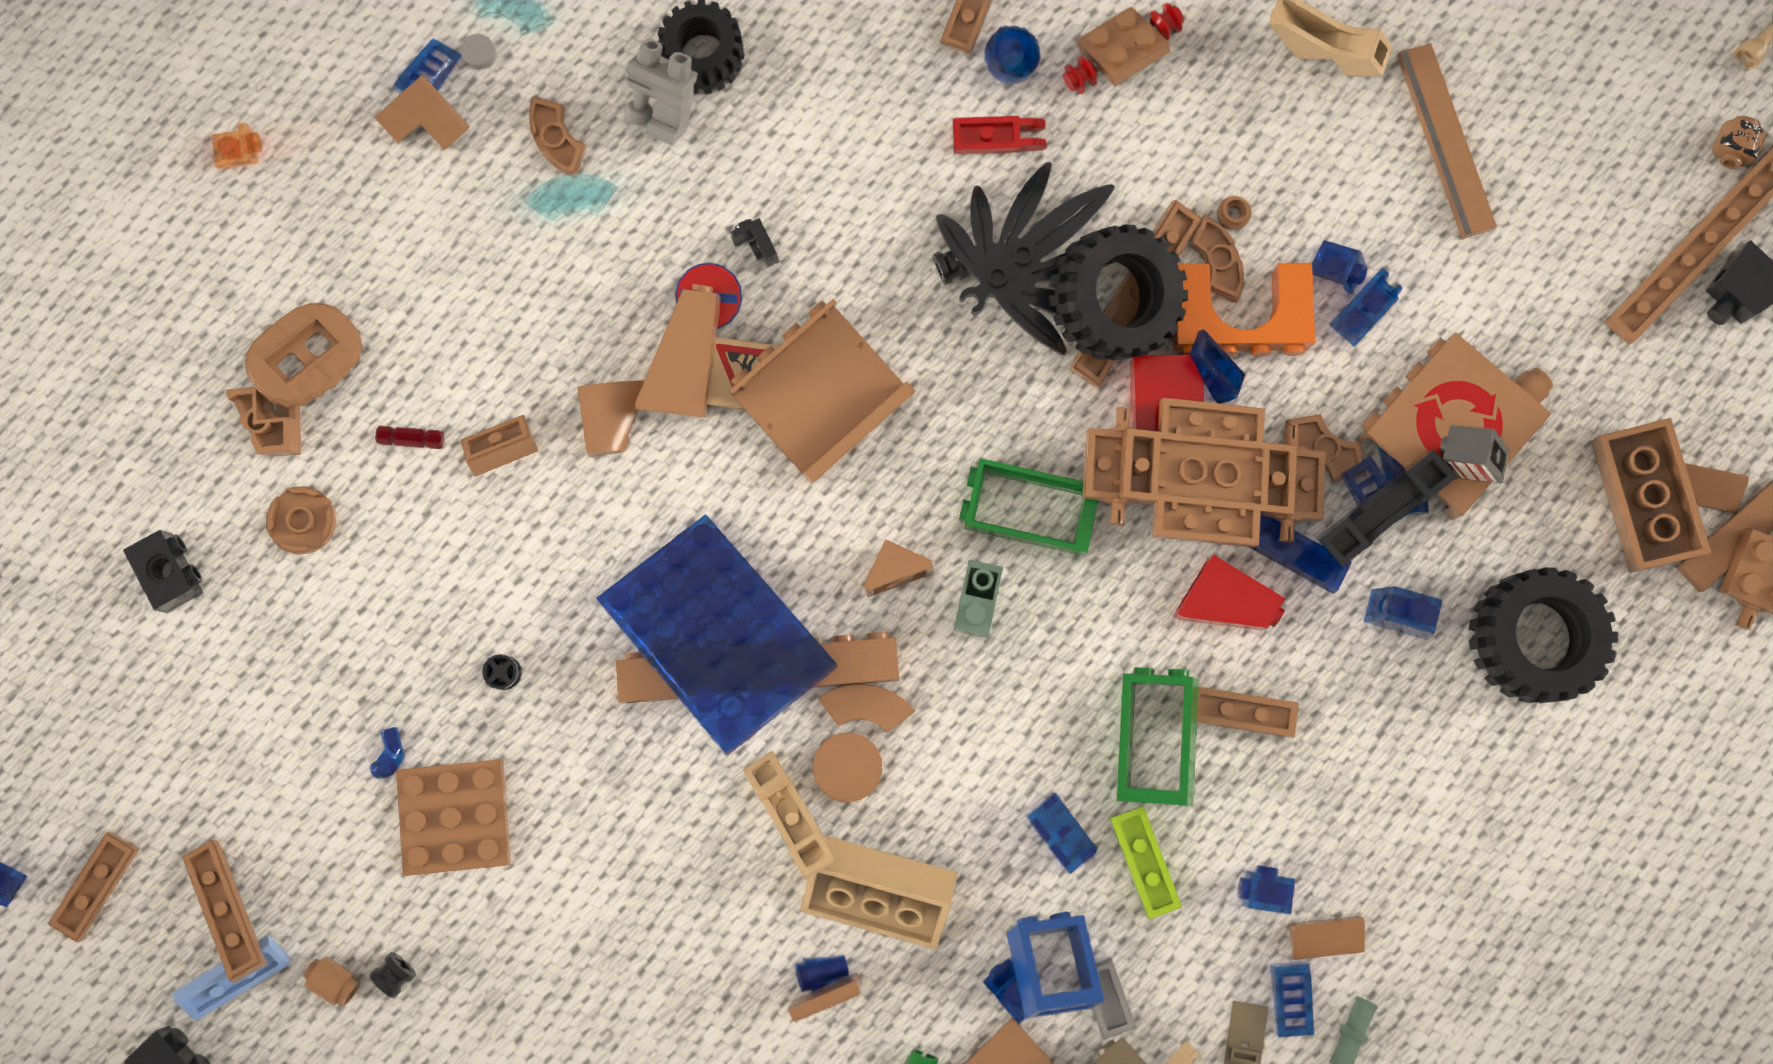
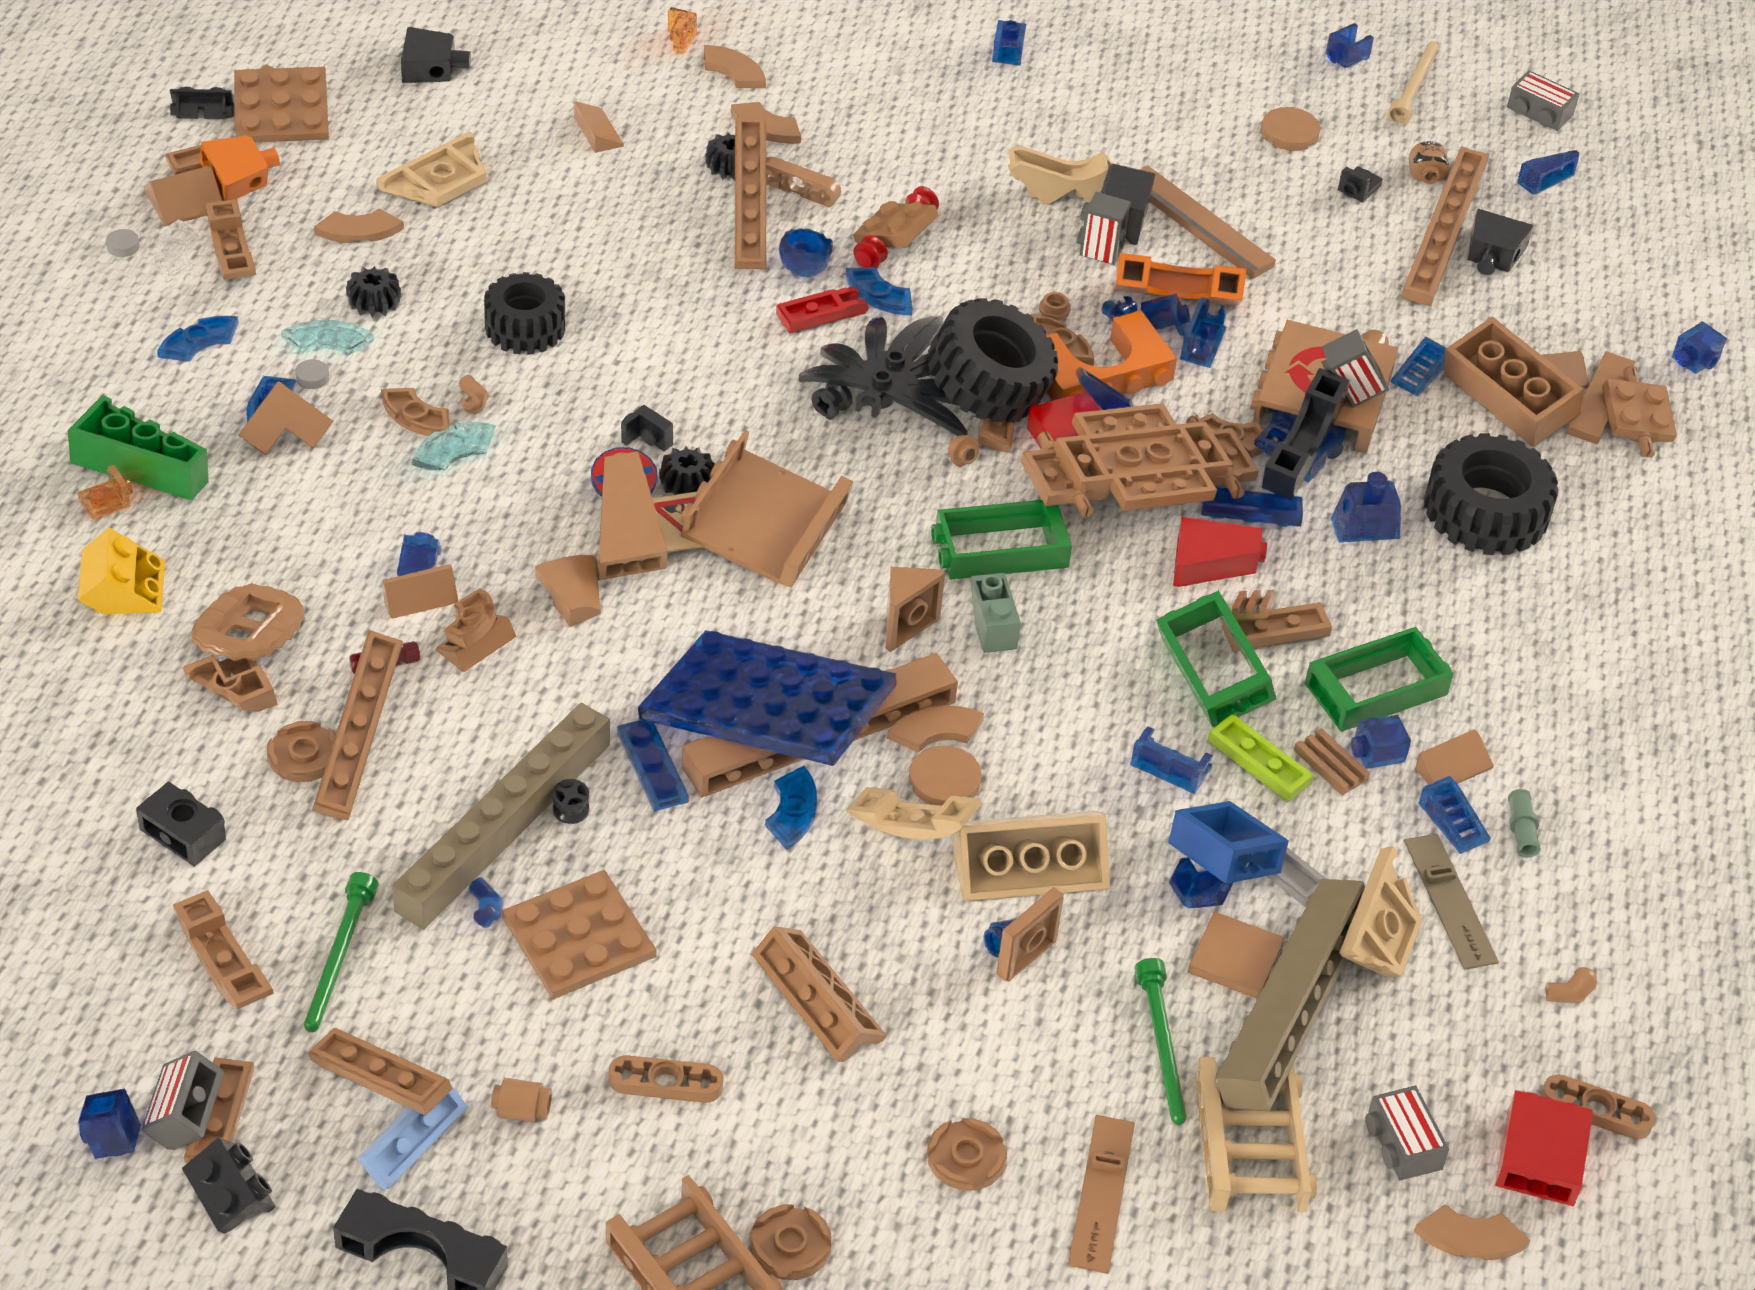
camera: 30 degrees left, 35 degrees down
(56, 878) = (182, 1101): none -> dark grey brick
(72, 969) = (228, 1184): none -> black bracket
(152, 728) = (220, 952): none -> medium nougat slope
(213, 258) = (120, 576): none -> yellow slope
(273, 104) = (137, 449): none -> green wedge
(284, 705) = (359, 890): none -> green piece
(351, 515) = (357, 726): none -> medium nougat tile
(392, 975) = (584, 1073): black wheel -> none
(433, 669) = (500, 816): none -> dark tan brick
(442, 981) = (656, 1067): none -> medium nougat beam
(468, 373) = (420, 591): none -> medium nougat slope
(483, 328) = (418, 553): none -> clear blue bracket
(501, 426) = (474, 619): none -> medium nougat tile
(593, 654) = (652, 764): none -> clear blue plate
(617, 971) = (816, 992): none -> medium nougat fence
(618, 137) = (476, 394): none -> medium nougat arm
(668, 83) = (507, 332): light grey hips -> none
(692, 758) = (796, 807): none -> clear blue tile
(771, 300) = (685, 470): none -> black gear
(1049, 377) = (963, 450): none -> medium nougat plate
(1066, 128) = (879, 292): none -> clear blue tile
(1227, 891) = (1336, 758): none -> medium nougat tile
(1241, 668) = (1250, 603): none -> medium nougat tile
(1249, 816) = (1341, 708): none -> green window
(1307, 241) = (1114, 310): none -> clear blue arm
(1330, 132) = (1103, 228): none -> brick
(1375, 98) = (1132, 186): none -> black slope
(1409, 249) = (1145, 276): none -> orange arch
(1596, 417) = (1429, 349): none -> clear blue slope
(1616, 36) = (1290, 128): none -> medium nougat tile
(1647, 144) = (1358, 183): none -> black bracket

